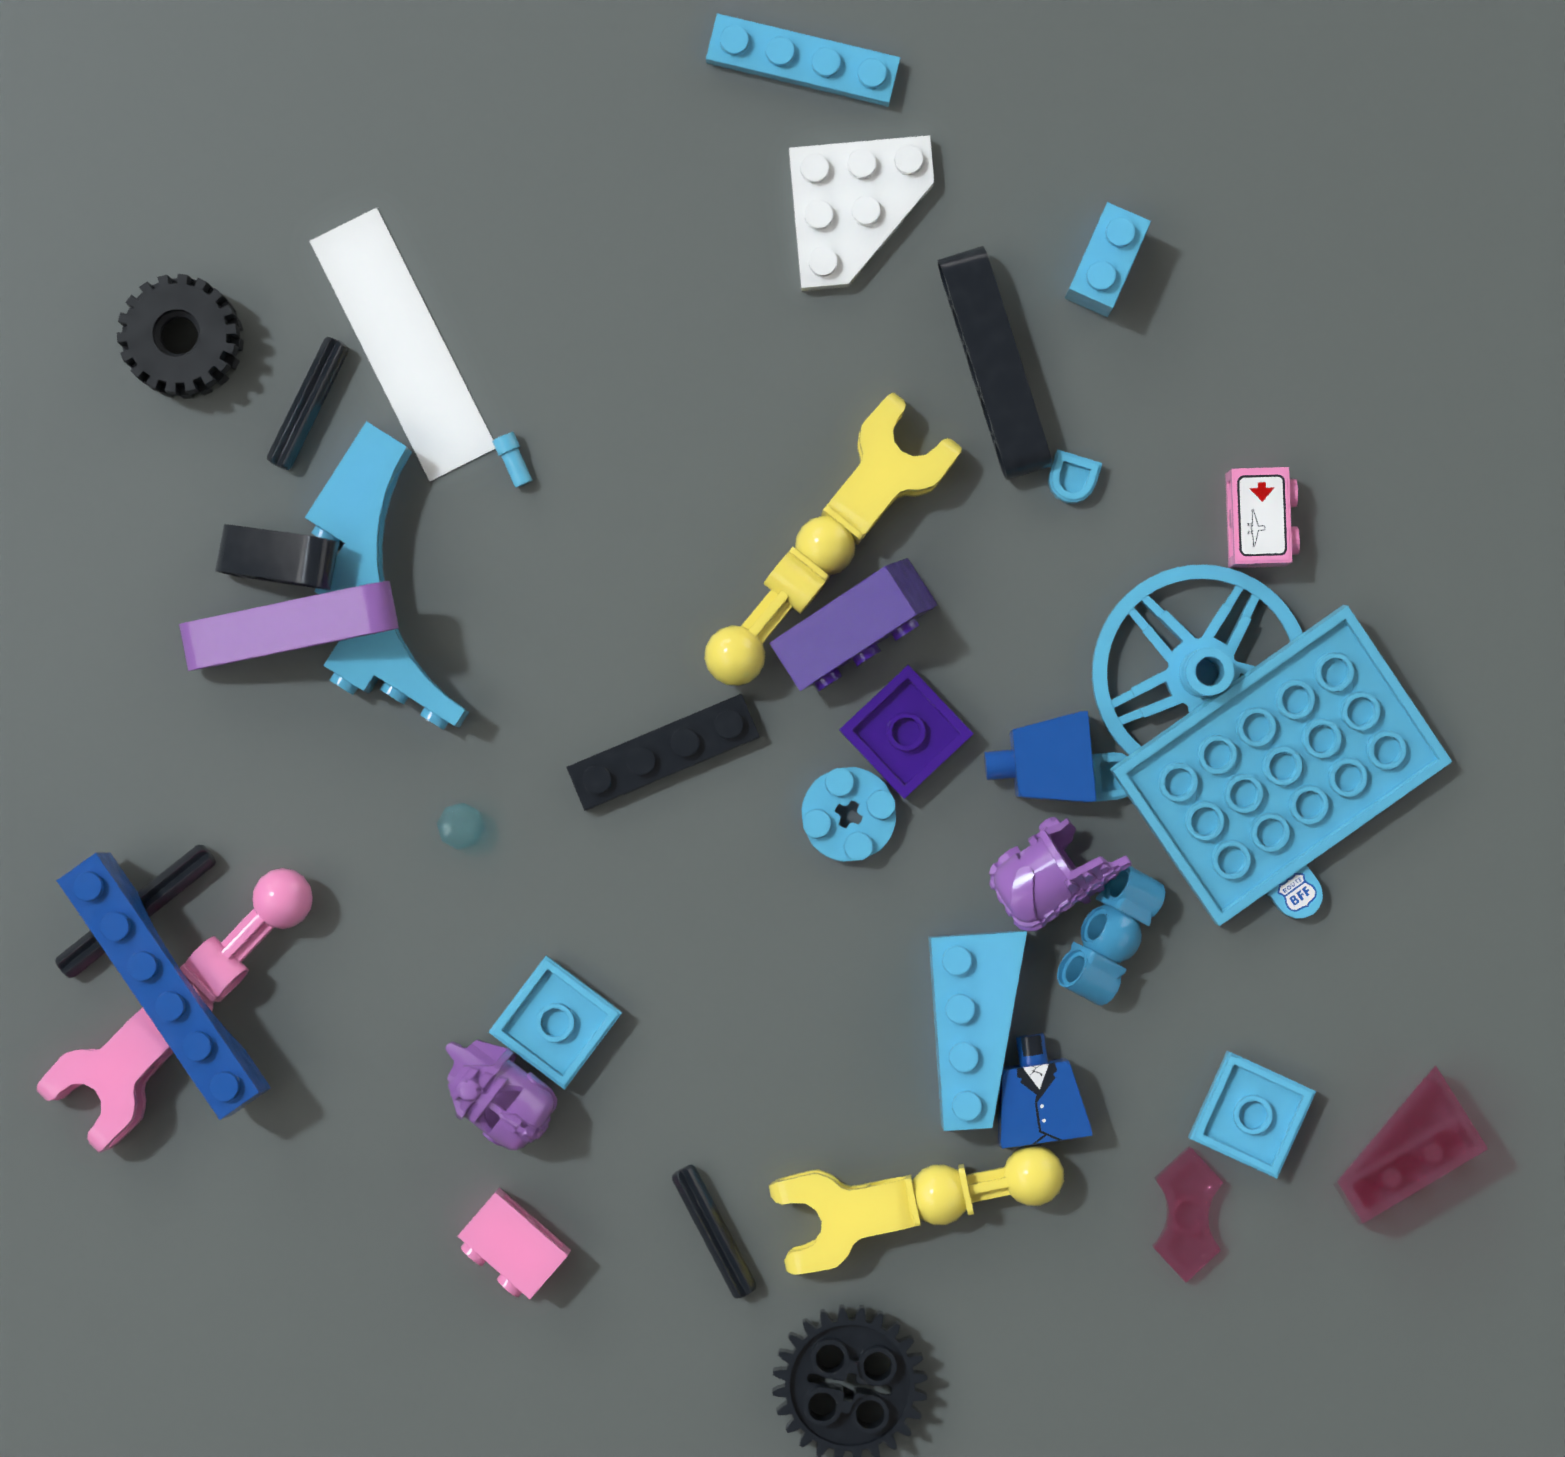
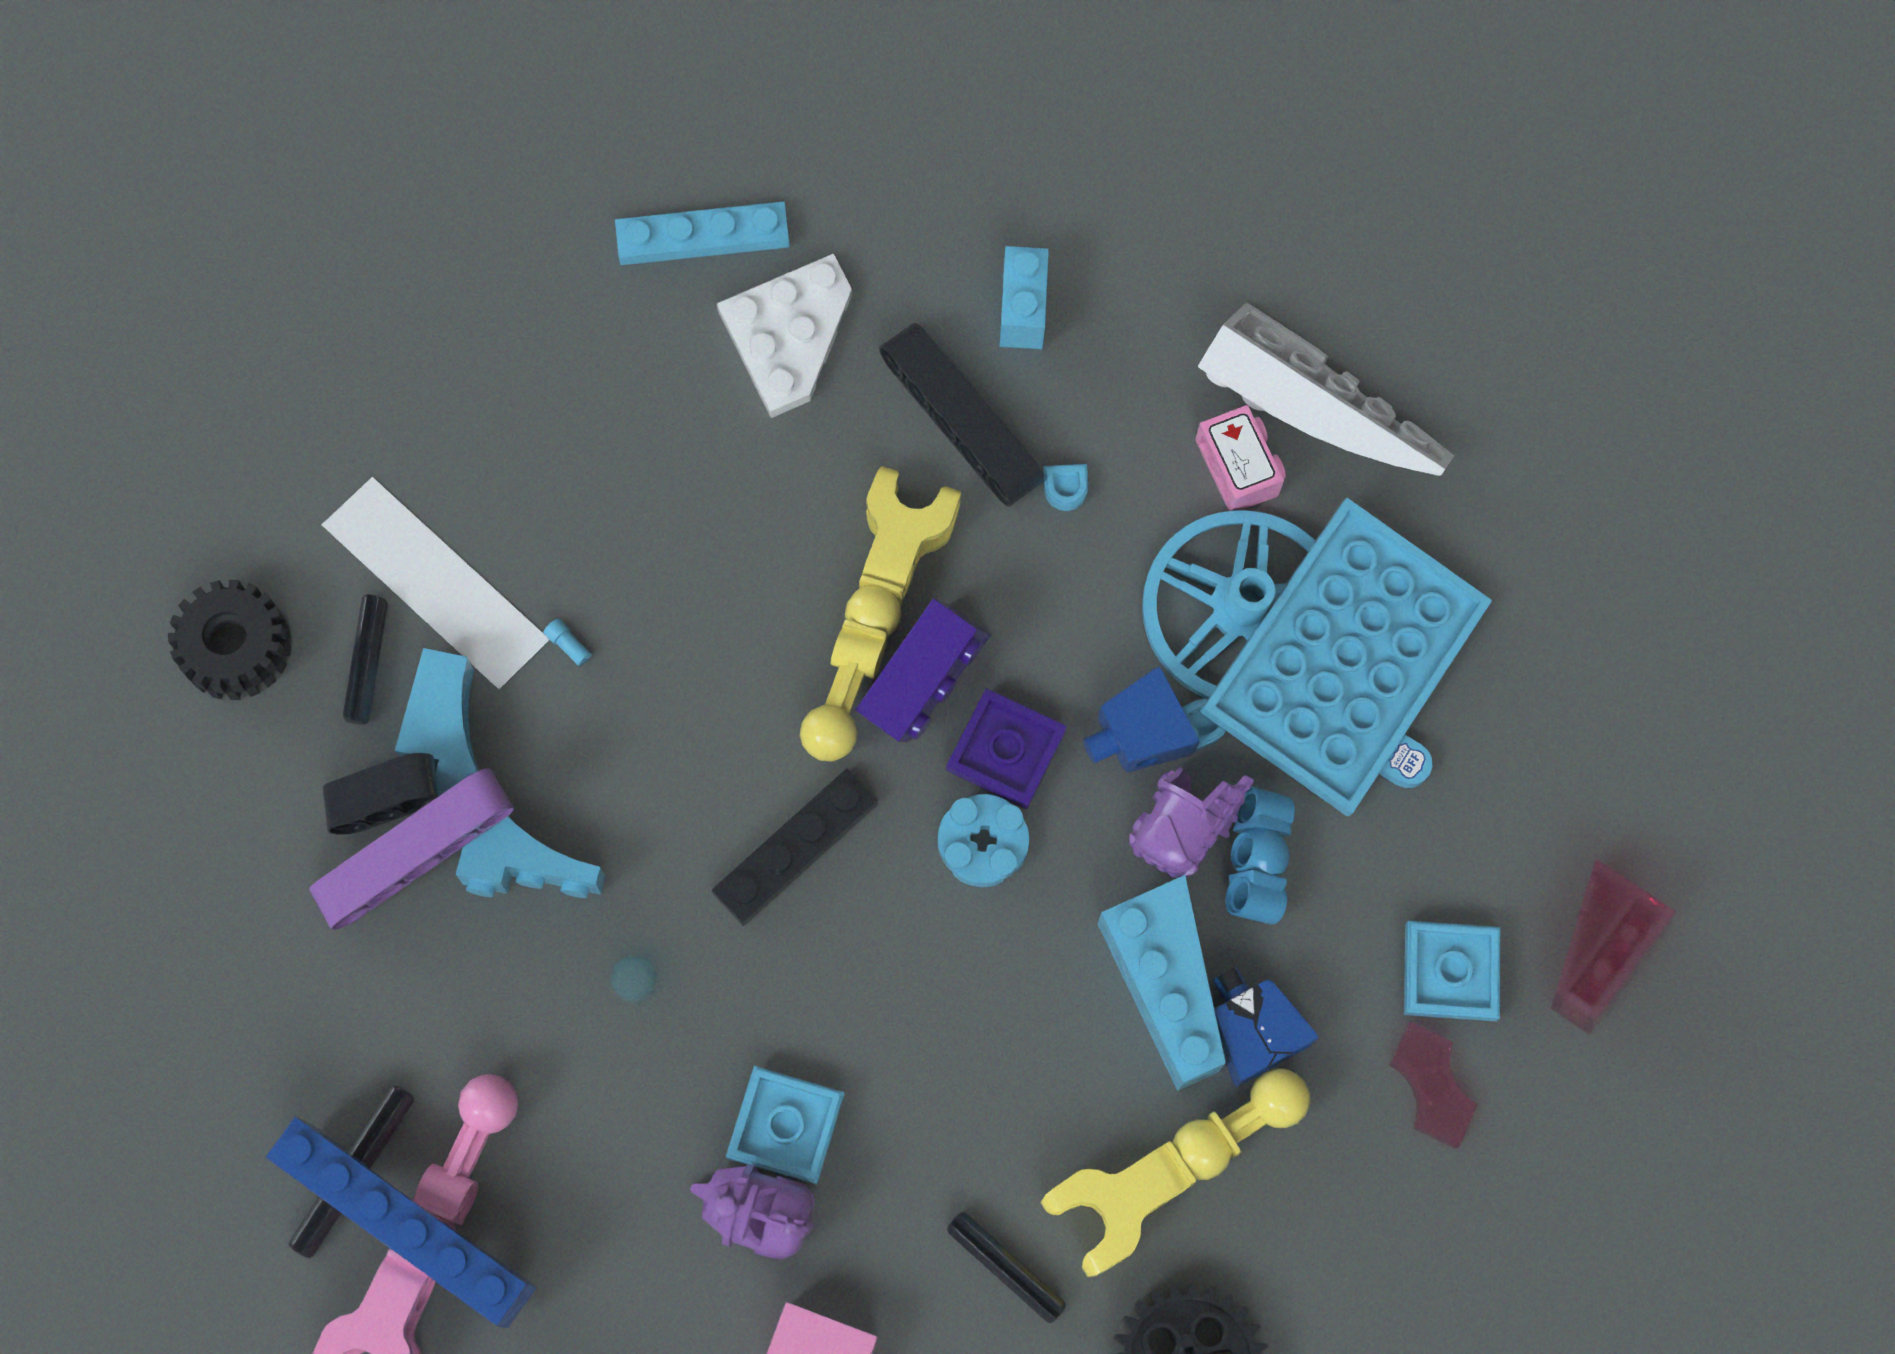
camera: 25 degrees left, 15 degrees down
(1350, 458) = (1292, 382): none -> white wedge

